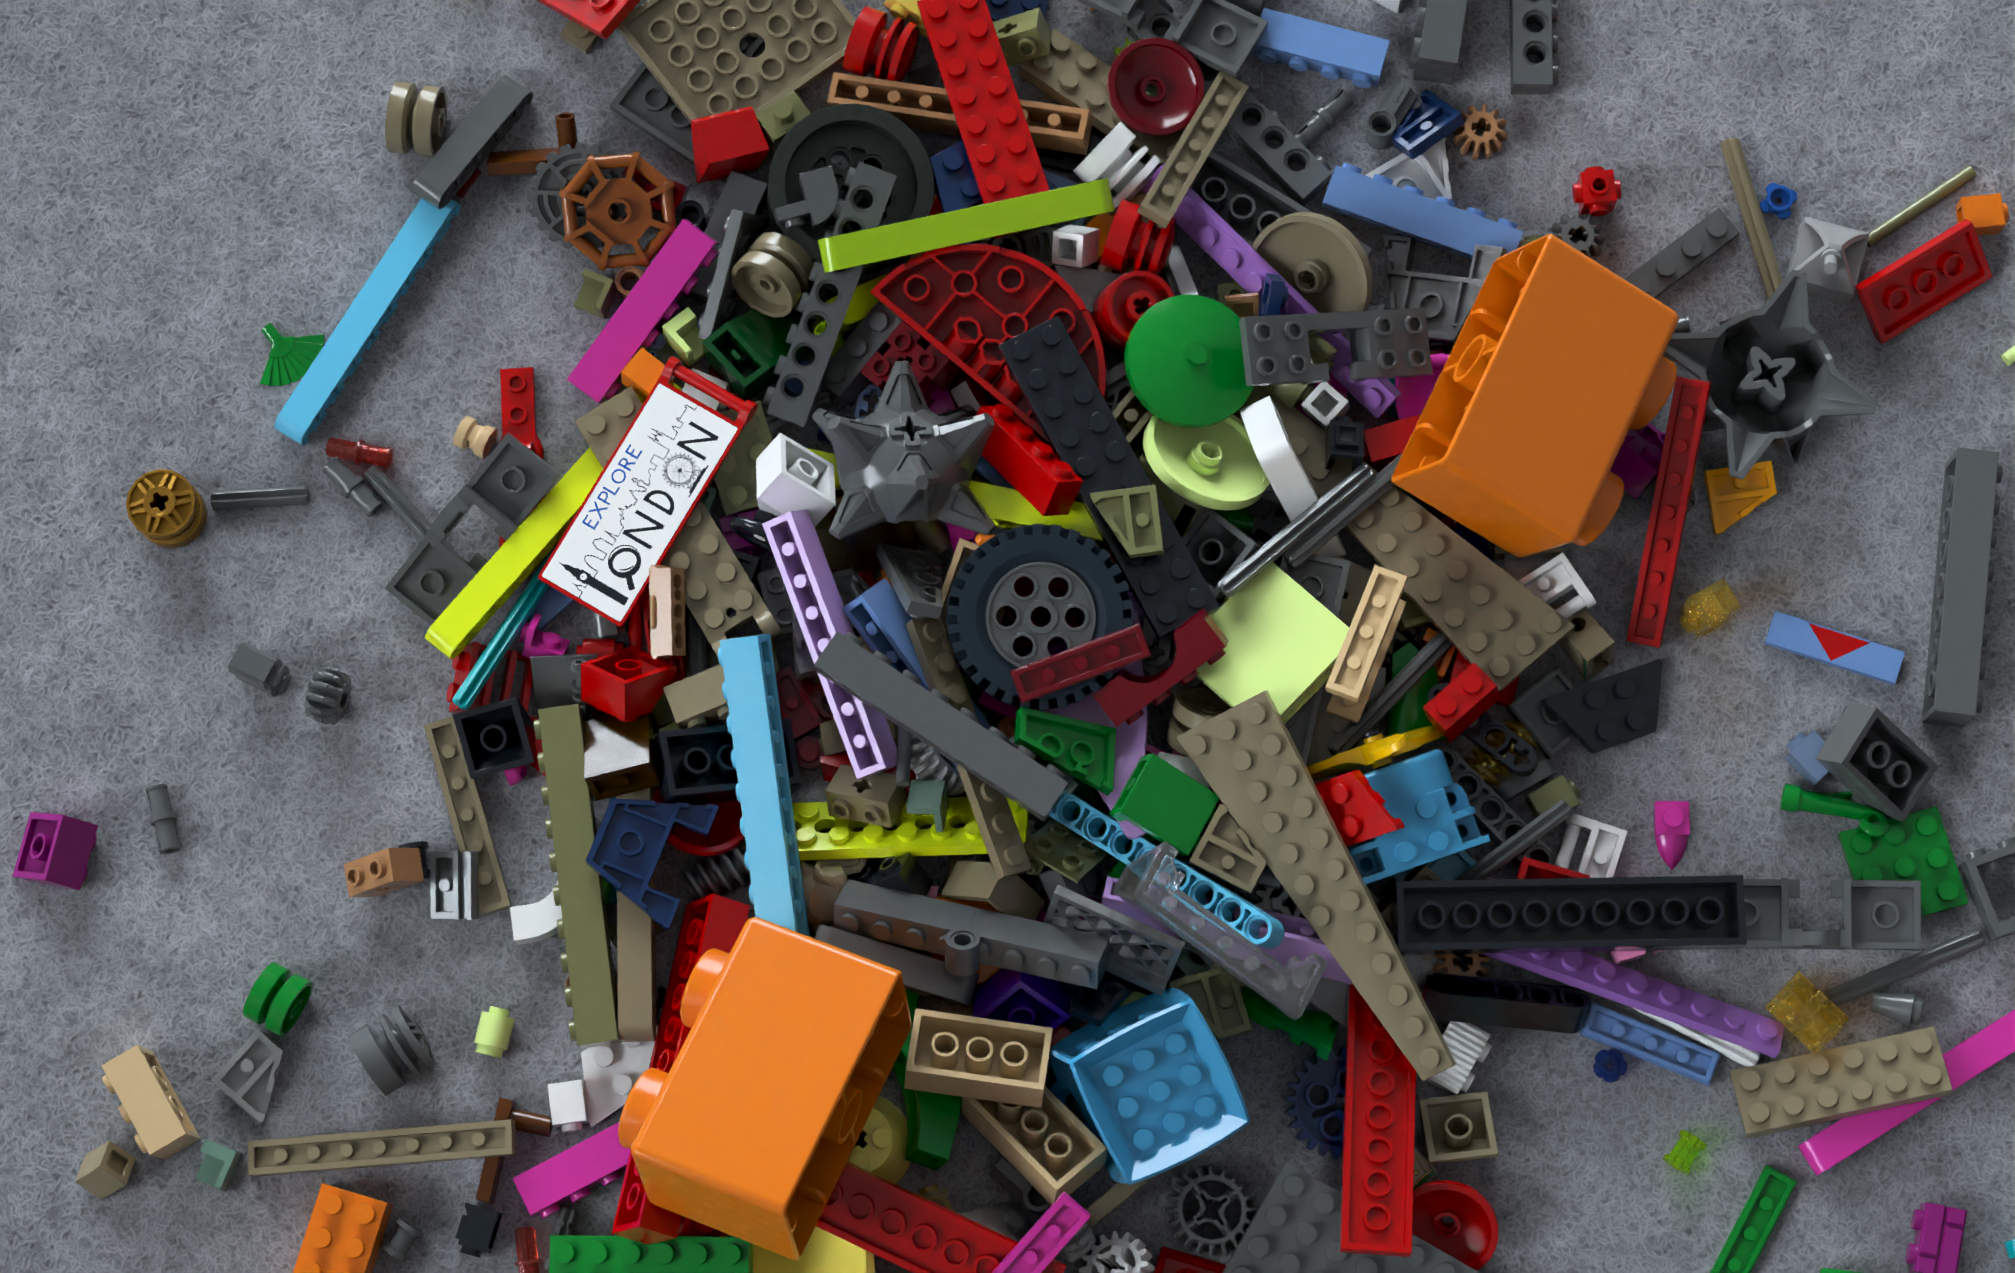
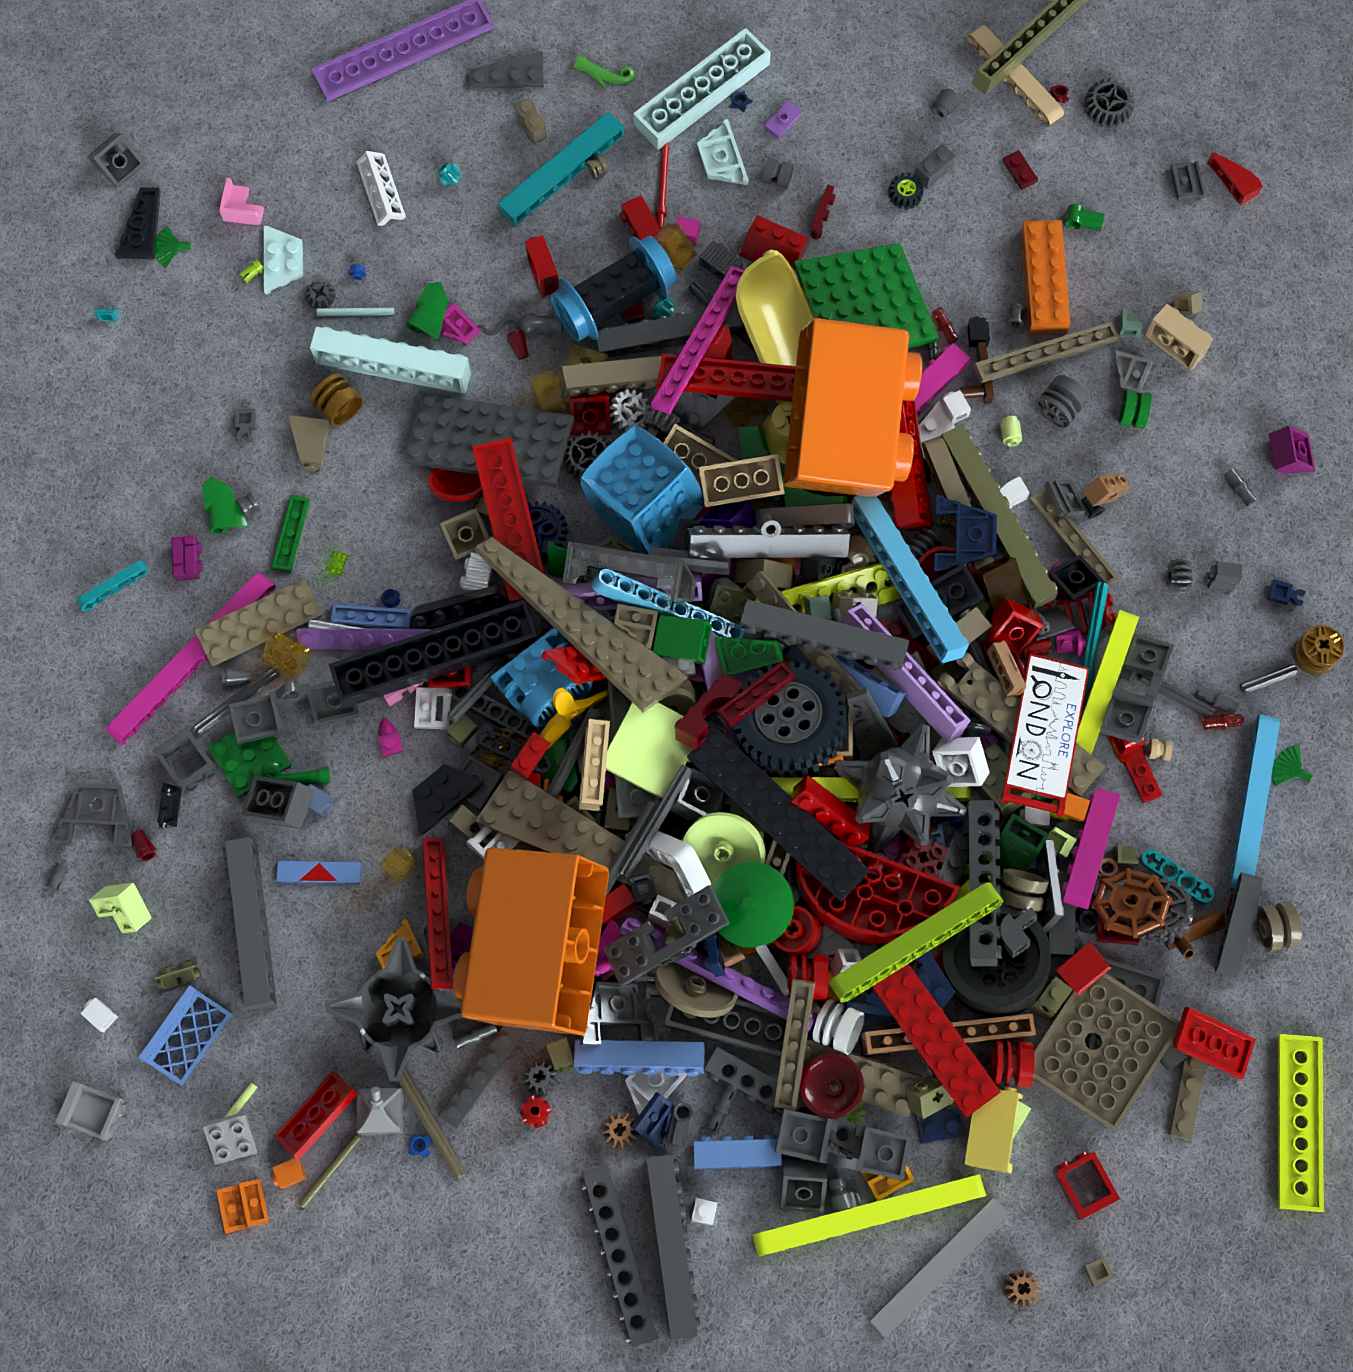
camera: 155 degrees right, 5 degrees down
(176, 623) = (1282, 593): none -> dark blue plate
(529, 245) = (1178, 873): none -> teal beam
(1133, 518) = (753, 786): olive wing -> none

